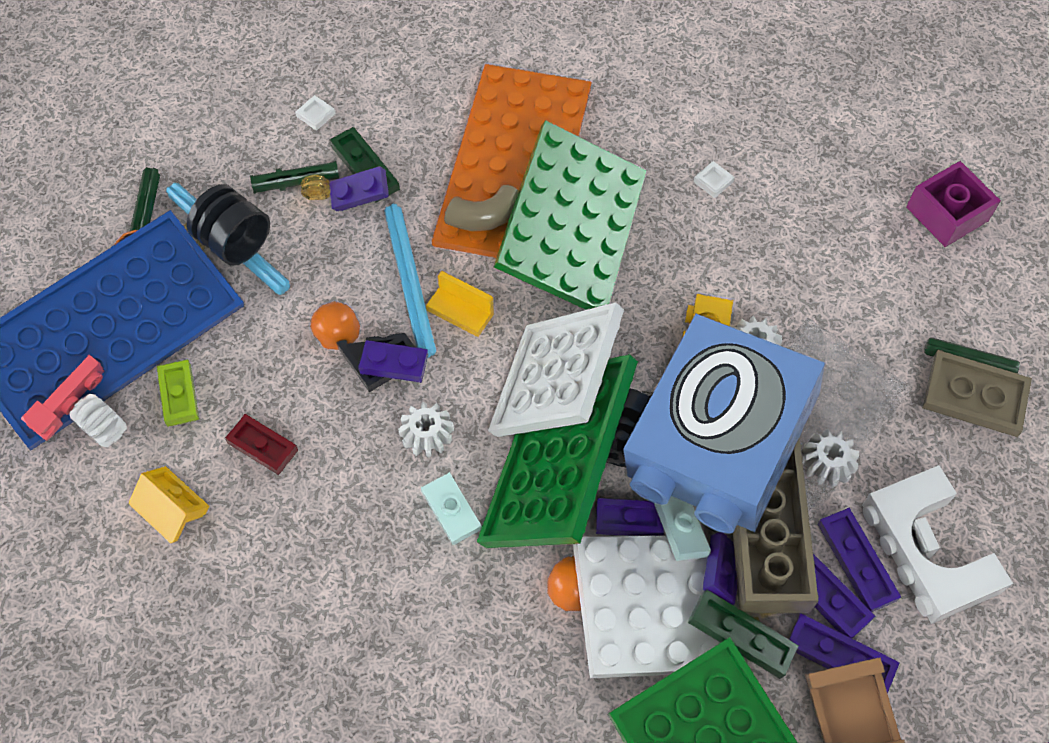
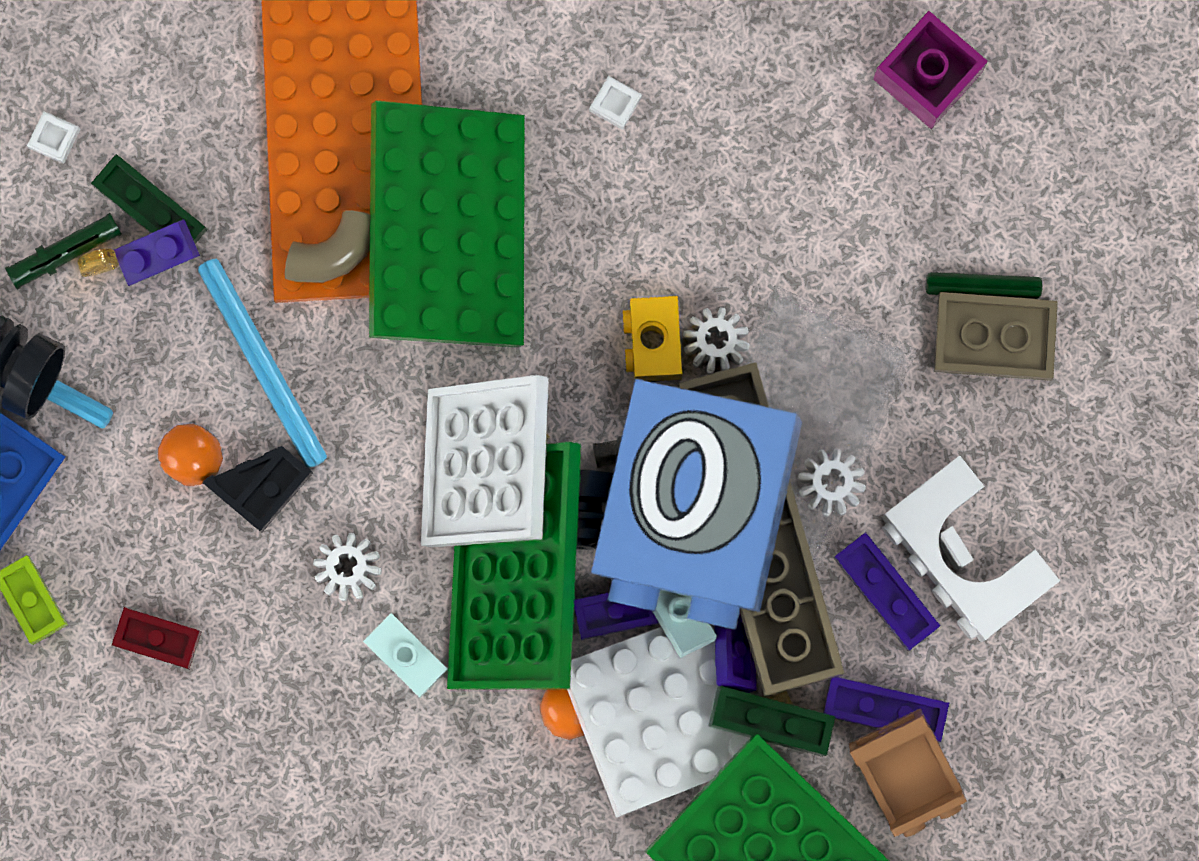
camera: 15 degrees left, 20 degrees up
(166, 502) = (72, 740): yellow panel -> none
(393, 361) = (281, 491): dark purple plate -> none
(461, 304) = (338, 387): yellow panel -> none
(839, 604) = (867, 646): dark purple plate -> none

